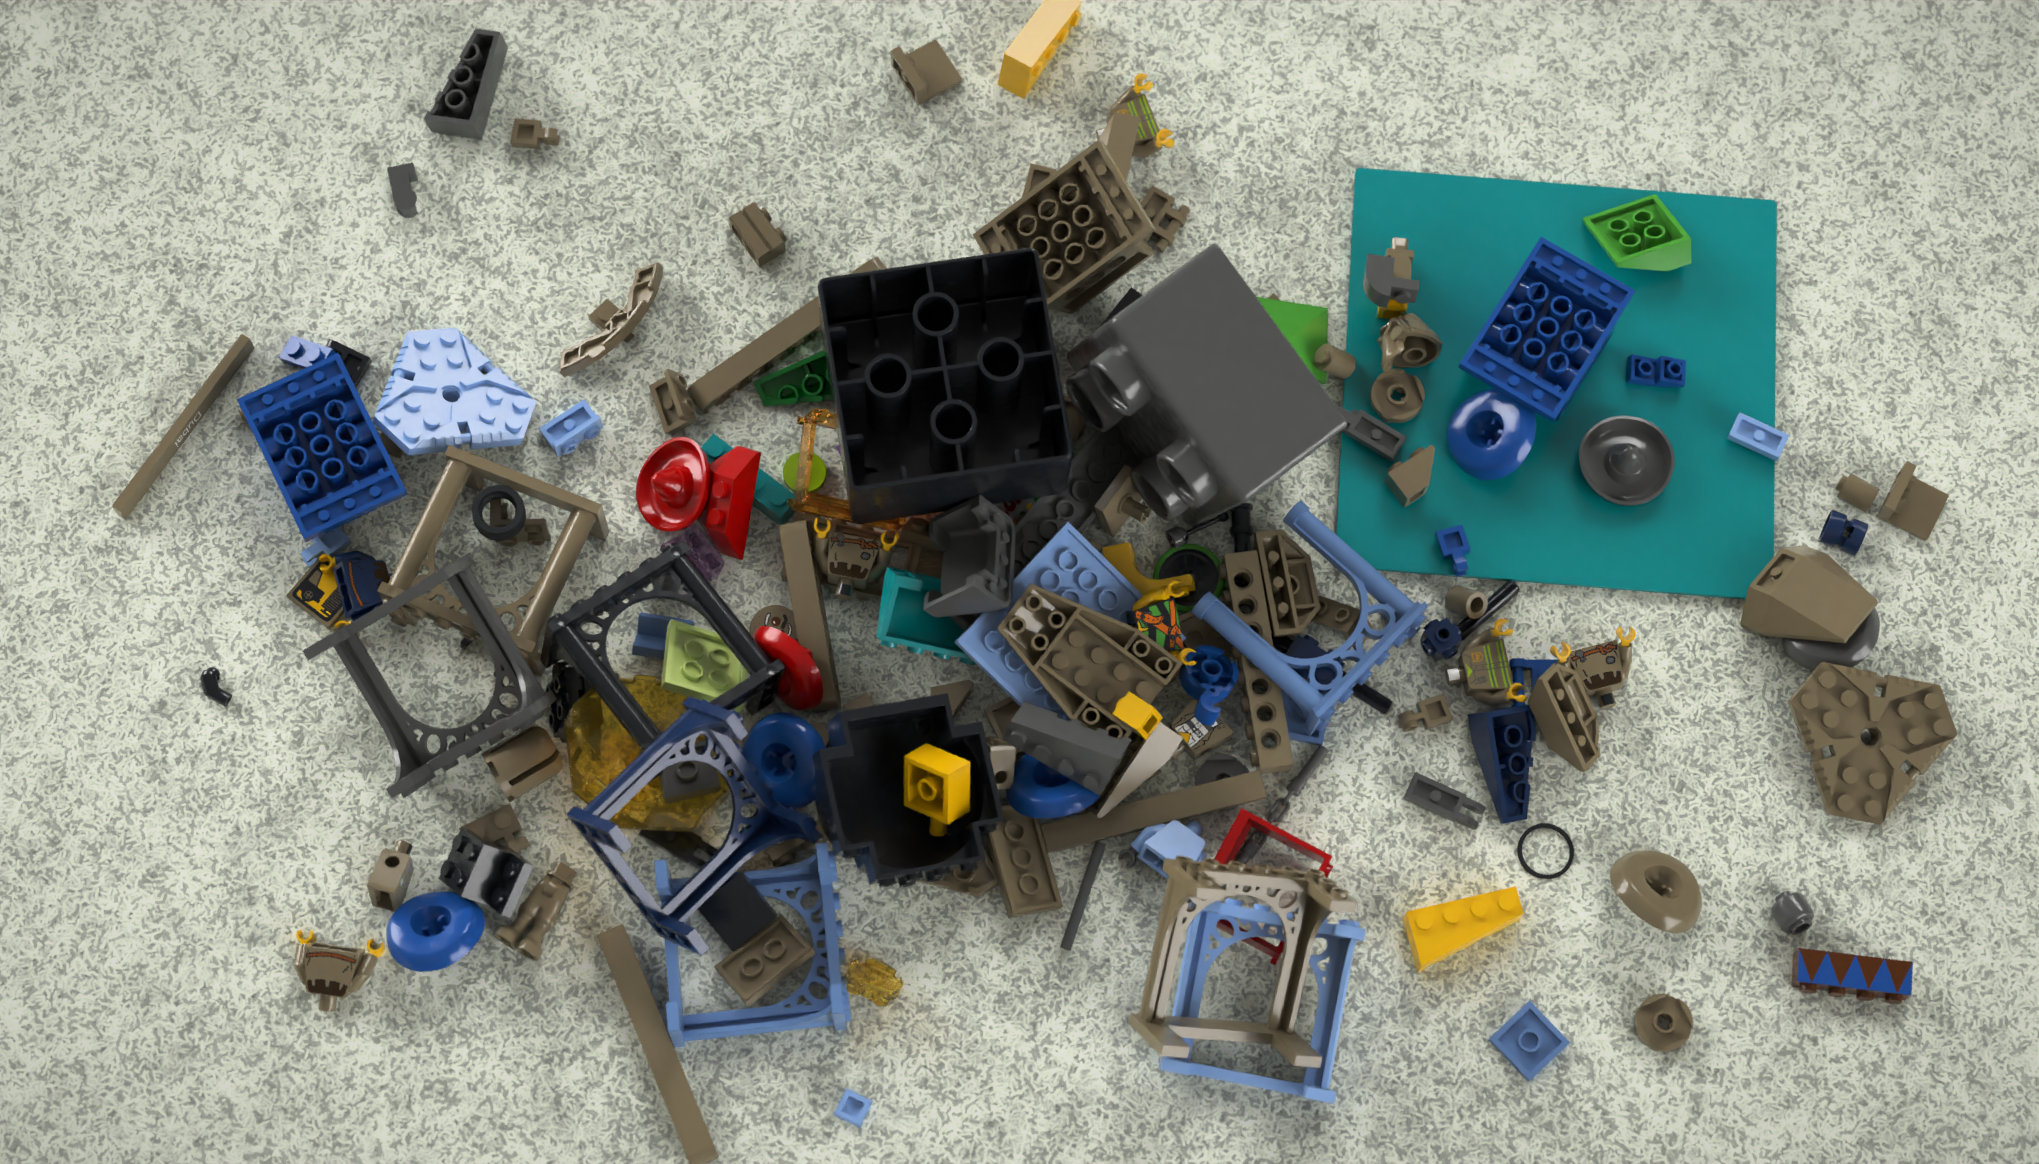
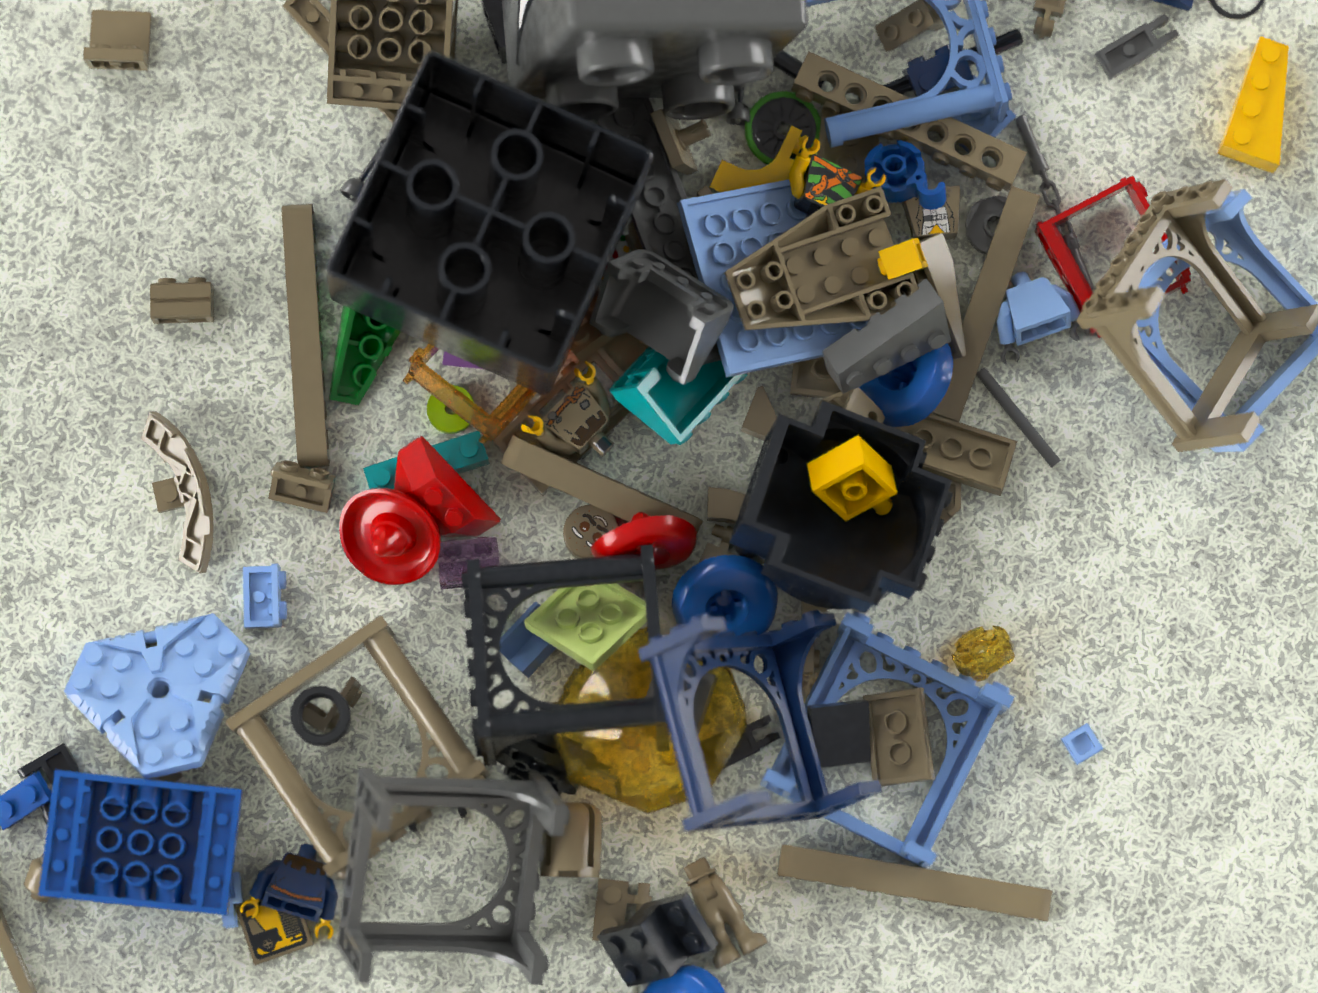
camera: 55 degrees left, 10 degrees up
(1286, 582) = (855, 46): dark tan wedge -> none

